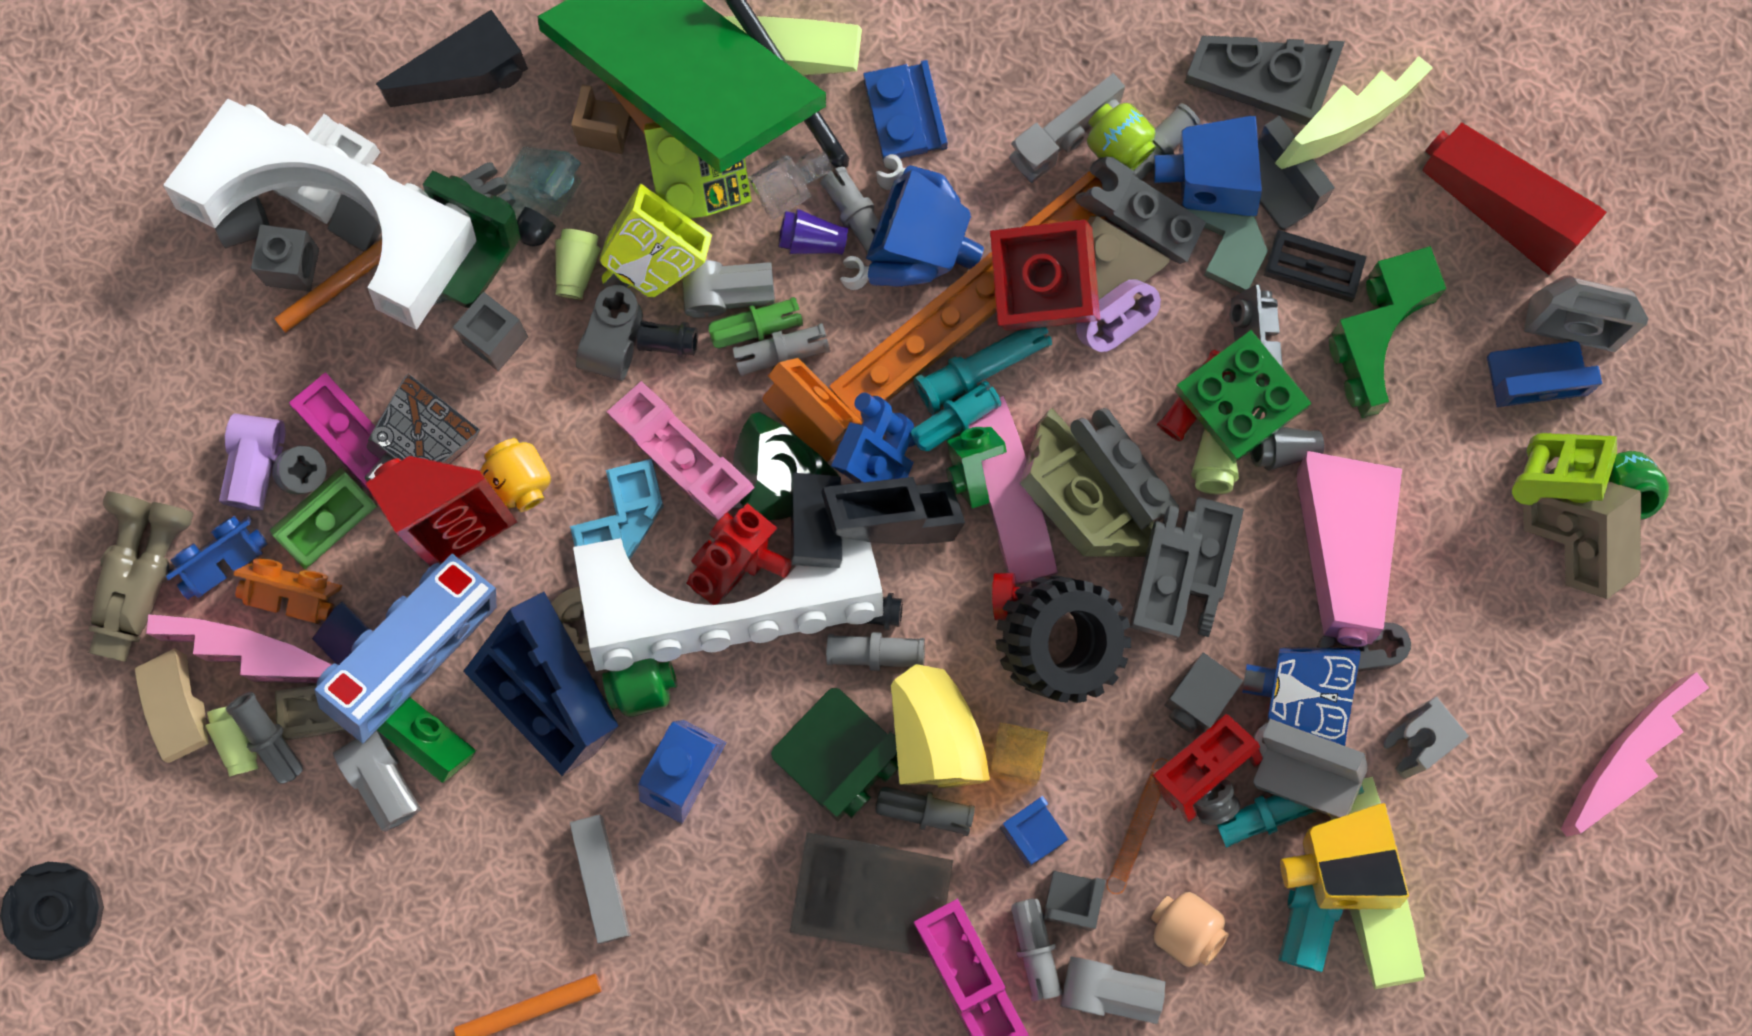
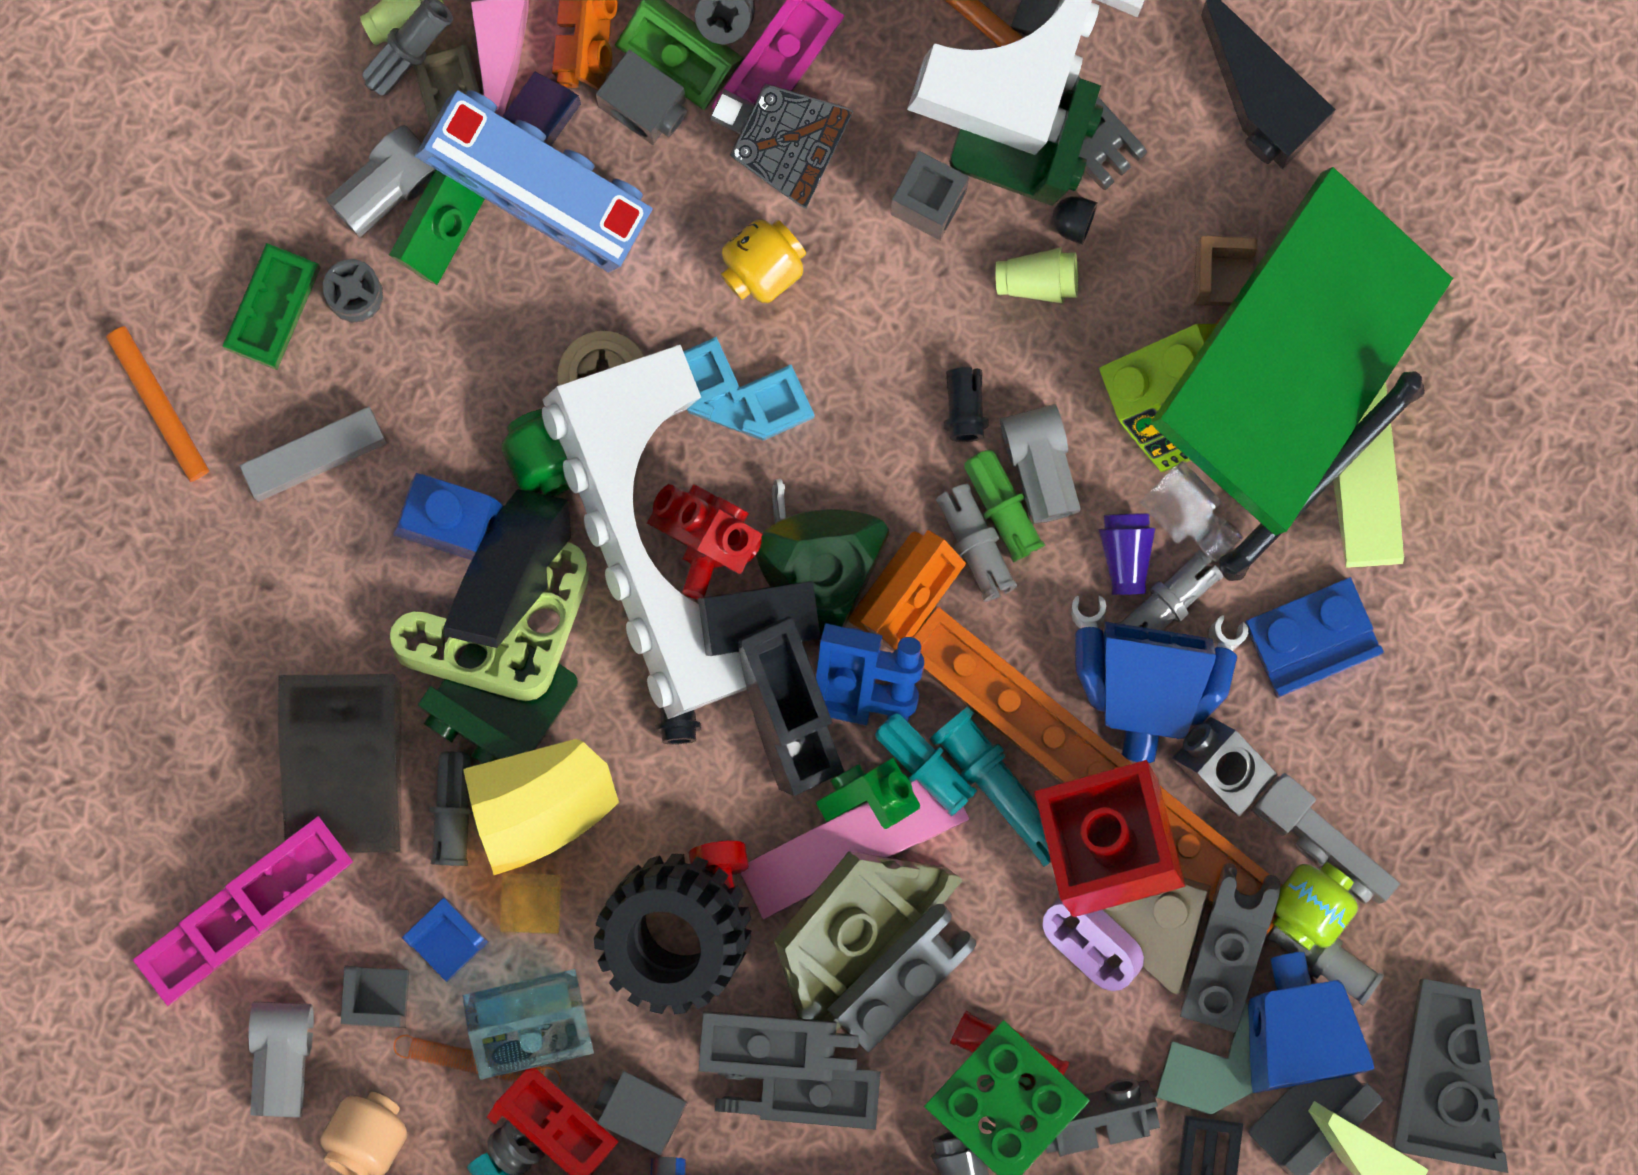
camera: 80 degrees right, 5 degrees up
(356, 549) = (643, 98): none -> dark grey brick
(439, 506) = (682, 176): red slope -> none
(459, 815) = (344, 283): none -> dark grey wheel
(464, 894) = (271, 306): none -> green plate
(543, 685) = (516, 345): dark blue wedge -> none
(544, 178) = (1138, 215): clear light blue slope -> none
(610, 342) = (946, 335): dark grey piece -> none
(652, 245) = (1067, 363): neon yellow torso -> none
(679, 452) = (823, 446): bright pink slope -> none
(734, 721) = (509, 568): none -> black slope
(799, 744) = (497, 670): none -> yellowish green beam
(875, 651) = (628, 720): light grey pin -> none
(997, 188) = (1241, 776): none -> dark grey brick
(1036, 949) = (313, 964): light grey axle -> none
(1117, 773) = (527, 1024): none -> clear light blue brick
(1213, 468) = (918, 1084): yellowish green cone -> none

